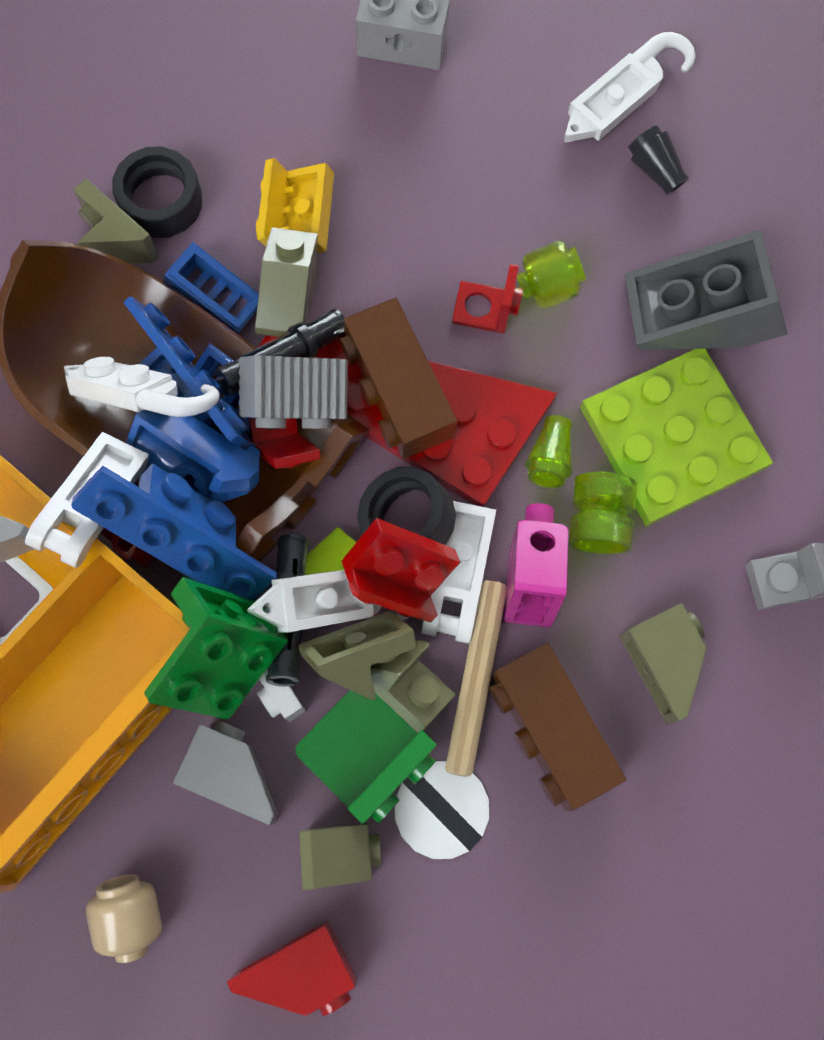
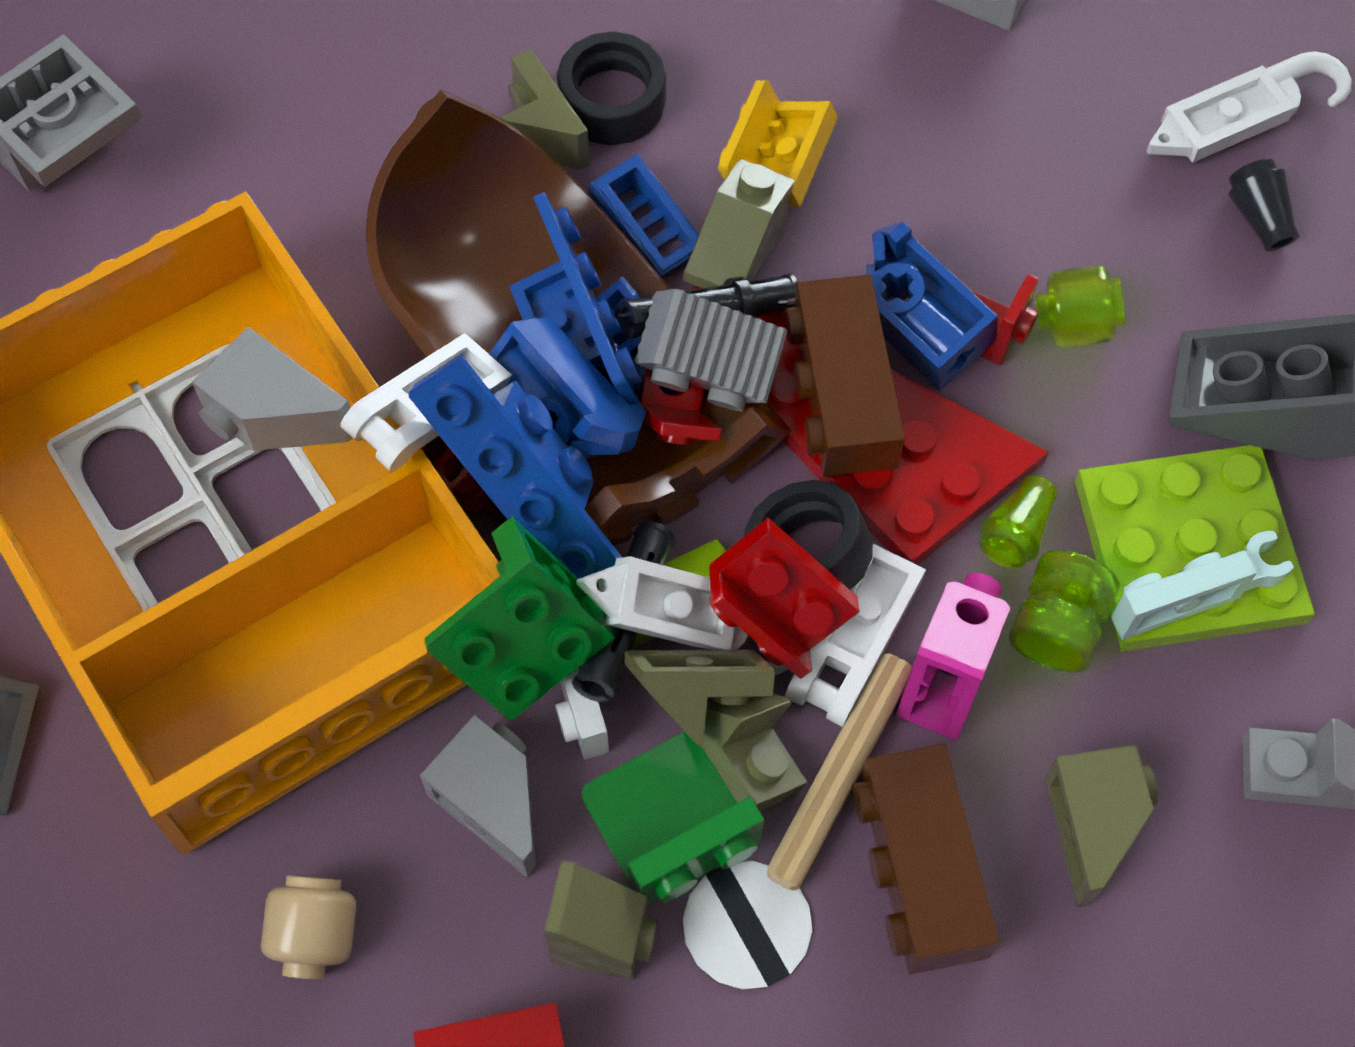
camera: 20 degrees right, 10 degrees down
(135, 388) = (518, 295): white plate -> none
(454, 313) = (942, 321): none -> blue piece
(697, 467) = (1200, 587): none -> light aqua plate

